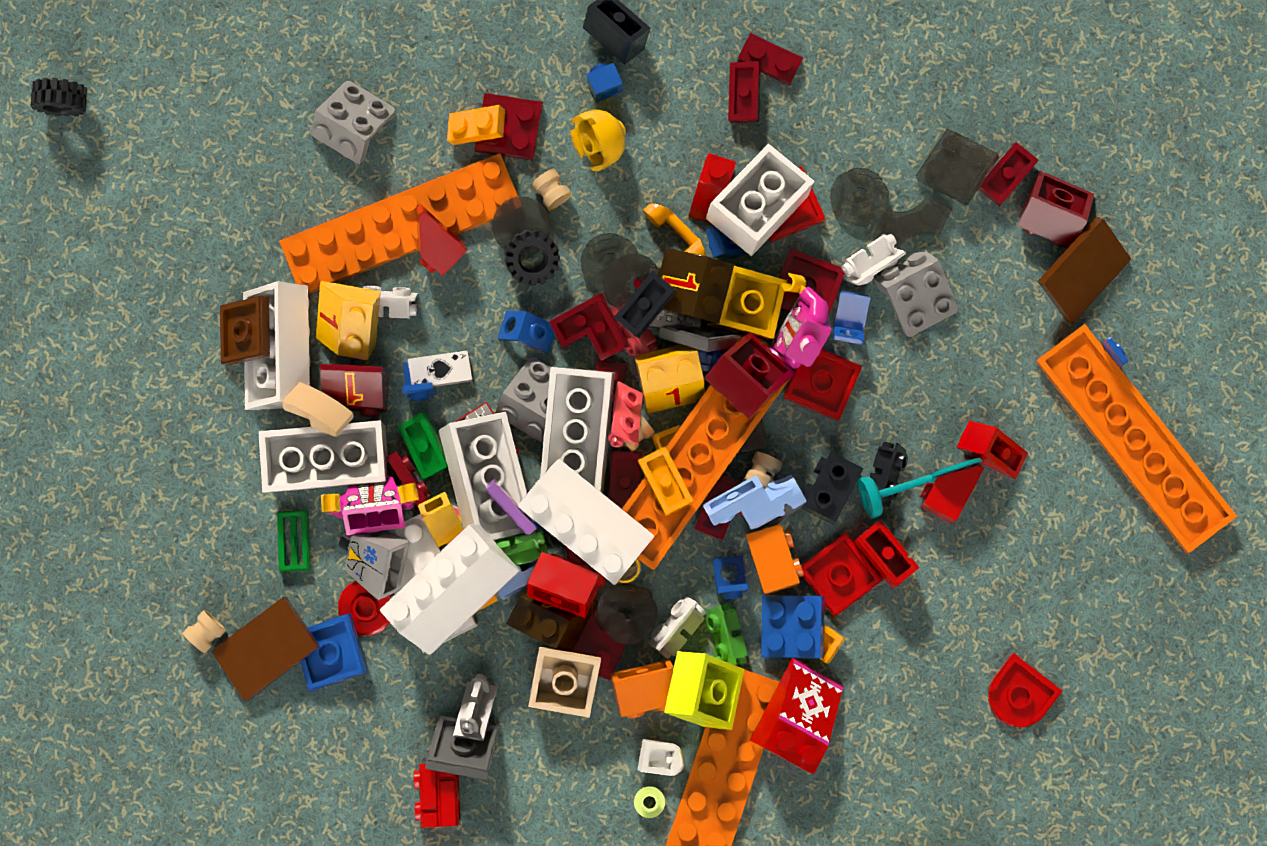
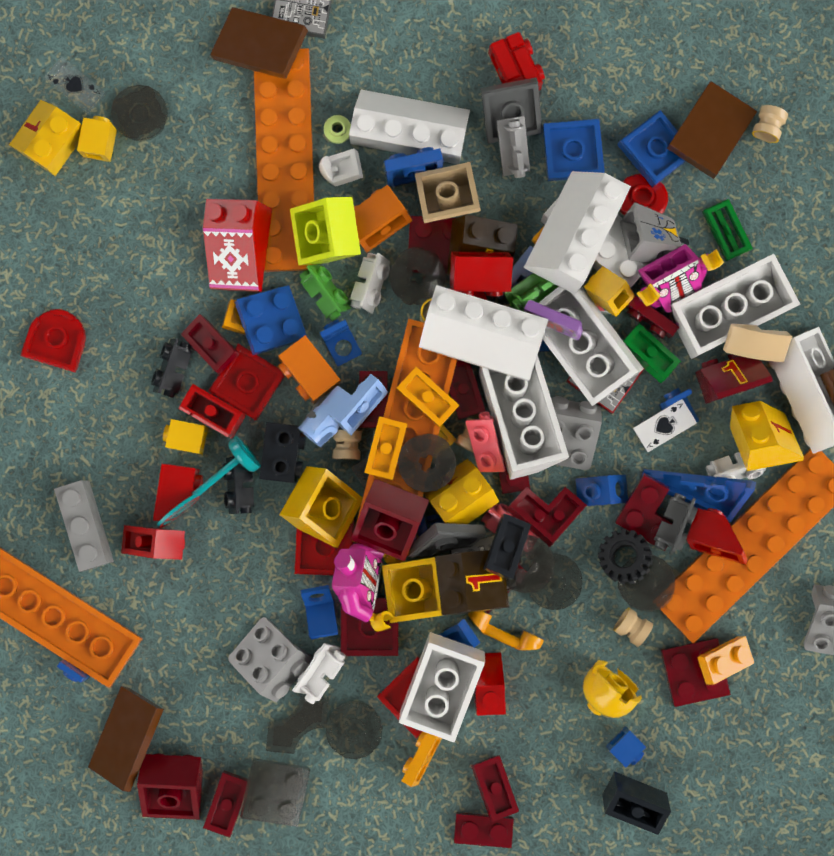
camera: 155 degrees right, 5 degrees up
(415, 683) = (572, 148): none -> blue plate
(430, 290) = (710, 492): none -> blue wing
(477, 259) = (680, 513): none -> dark grey hinge
(499, 291) = (640, 509): none -> dark red plate
(572, 776) = (408, 125): none -> white slope
(601, 728) = (402, 168): none -> blue plate
(691, 399) = (442, 458): none -> clear smoke plate
(726, 446) = (385, 448): none -> light orange plate
(810, 419) = (322, 505): none -> yellow slope
(812, 139) = (416, 766): none -> light orange plate
(864, 626) = (210, 343): none -> dark red plate
(904, 629) = (173, 357): none -> black hinge
(923, 541) = (185, 436): none -> yellow brick
(1055, 491) = (84, 525): none -> light grey brick

